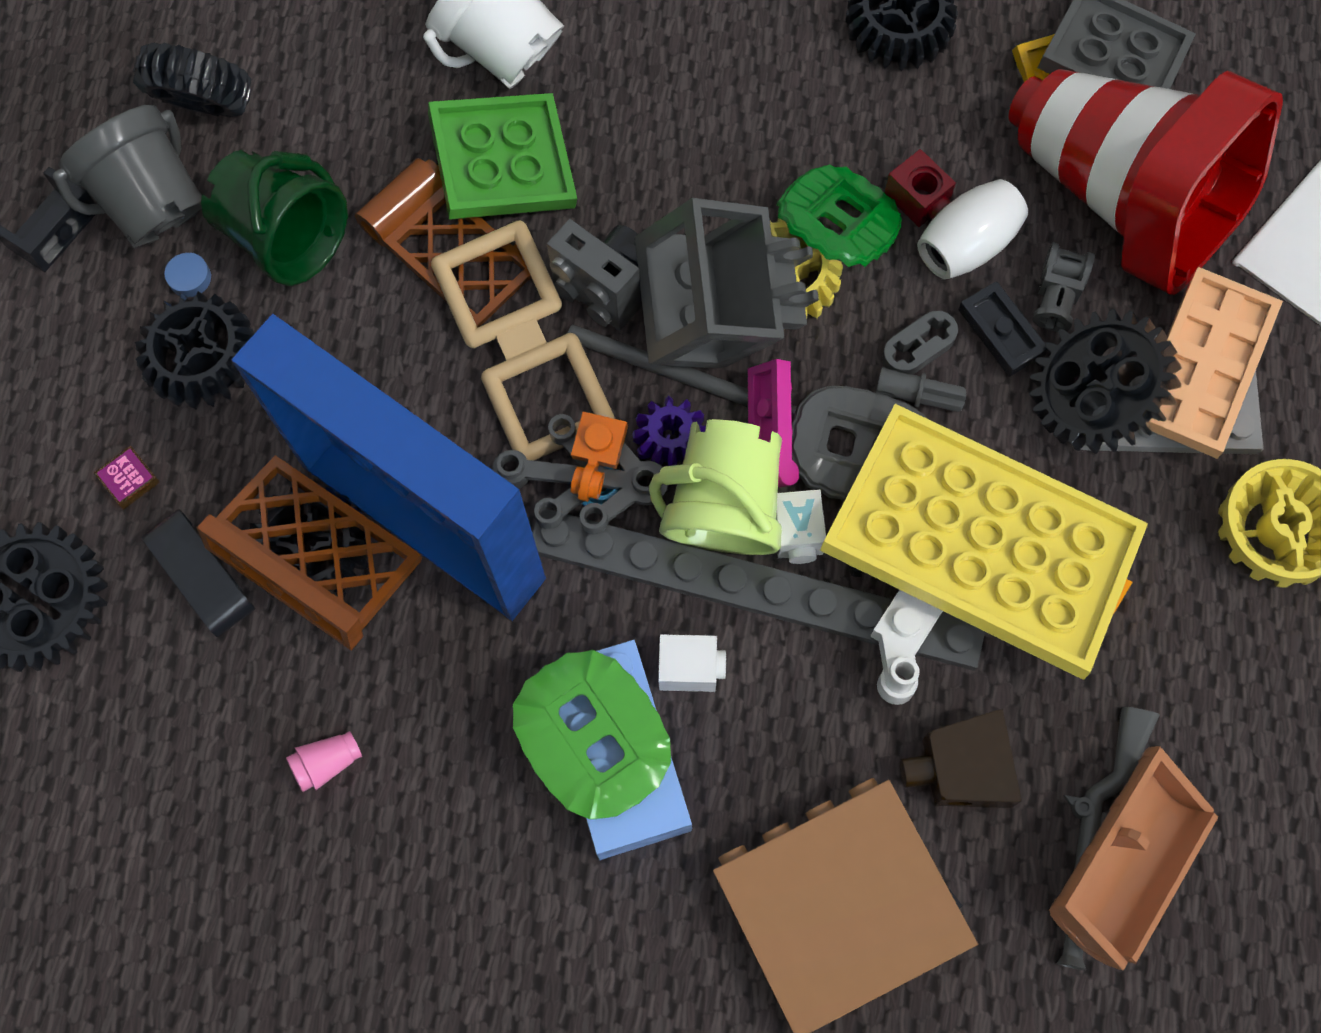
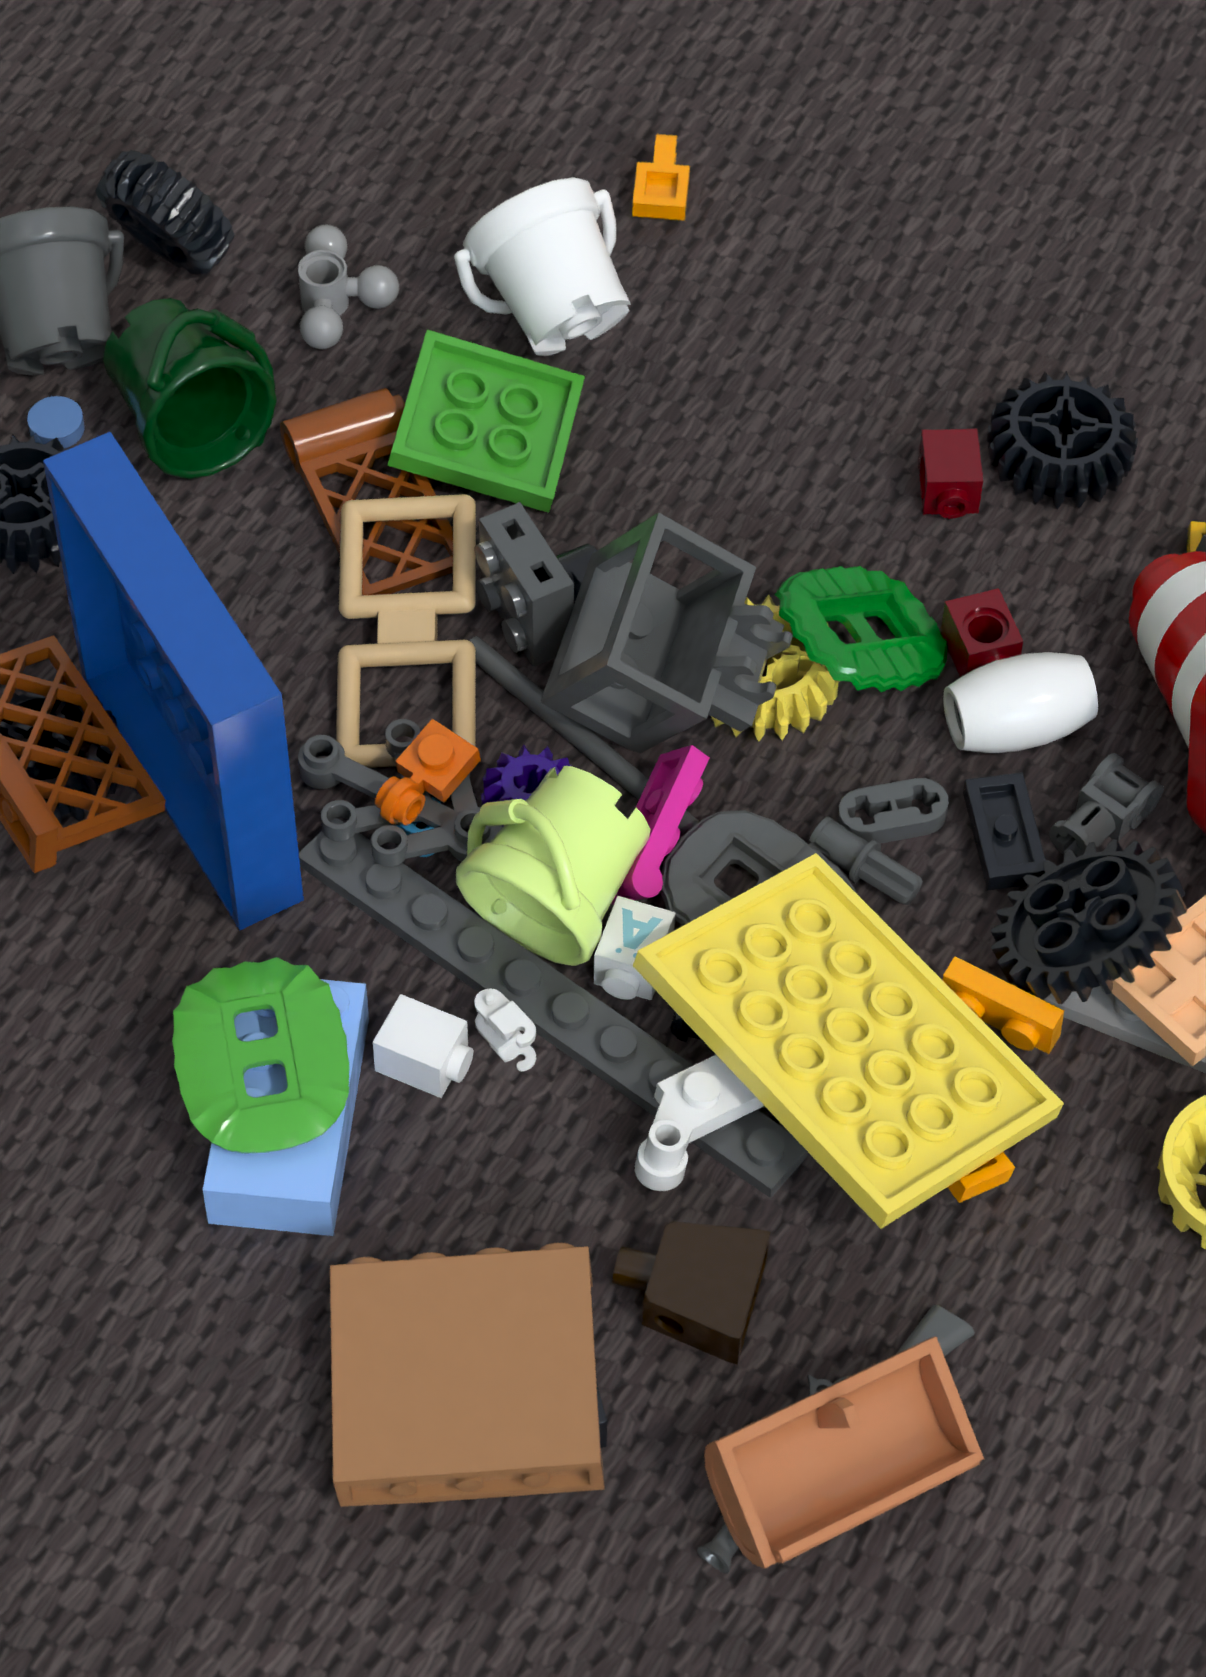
camera: 20 degrees right, 15 degrees down
(328, 78) = (327, 288): none -> light grey piece
(739, 623) = (501, 1025): none -> white piece
(839, 70) = (950, 472): none -> dark red brick
(1085, 467) = (1018, 1014): none -> light orange plate

